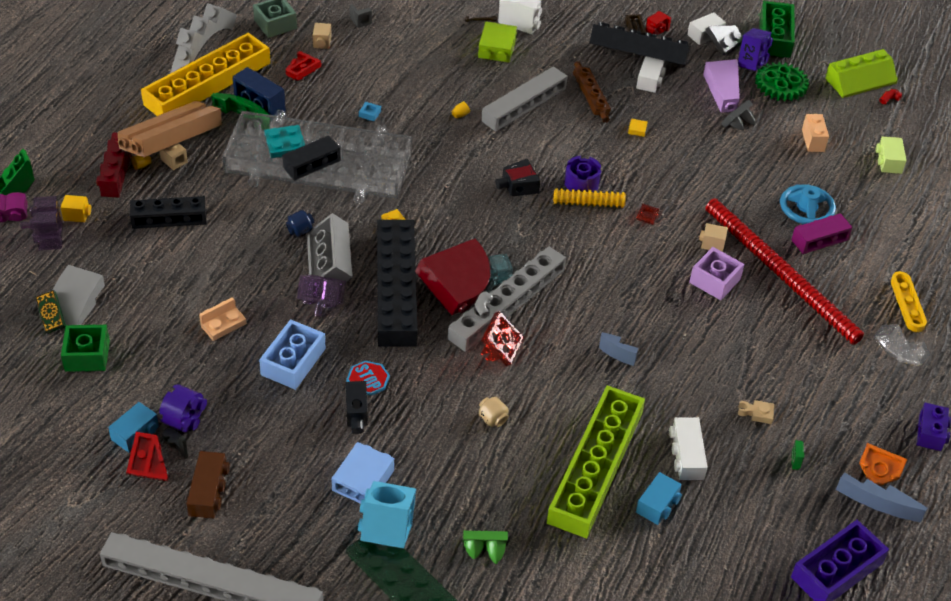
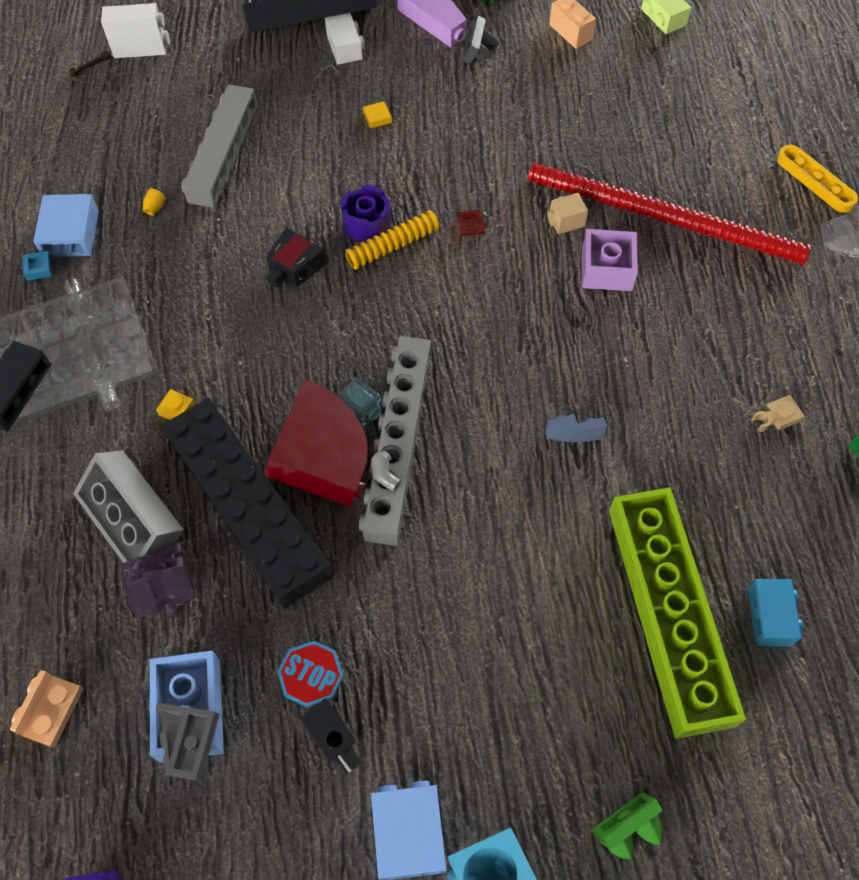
camera: 30 degrees left, 15 degrees up
(282, 359) = (186, 739): none -> flat silver wing
(299, 223) = (56, 488): dark blue head -> none
(401, 98) = (66, 225): none -> light blue brick
(493, 411) = (500, 617): tan head -> none
(497, 42) = (134, 84): lime brick -> none
(514, 339) = (446, 489): clear red piece -> none
(592, 91) = (291, 94): reddish brown plate -> none
(688, 448) = (753, 518): white brick -> none
(807, 201) = (629, 113): dark azure piece -> none
(821, 233) = (671, 143): magenta brick -> none

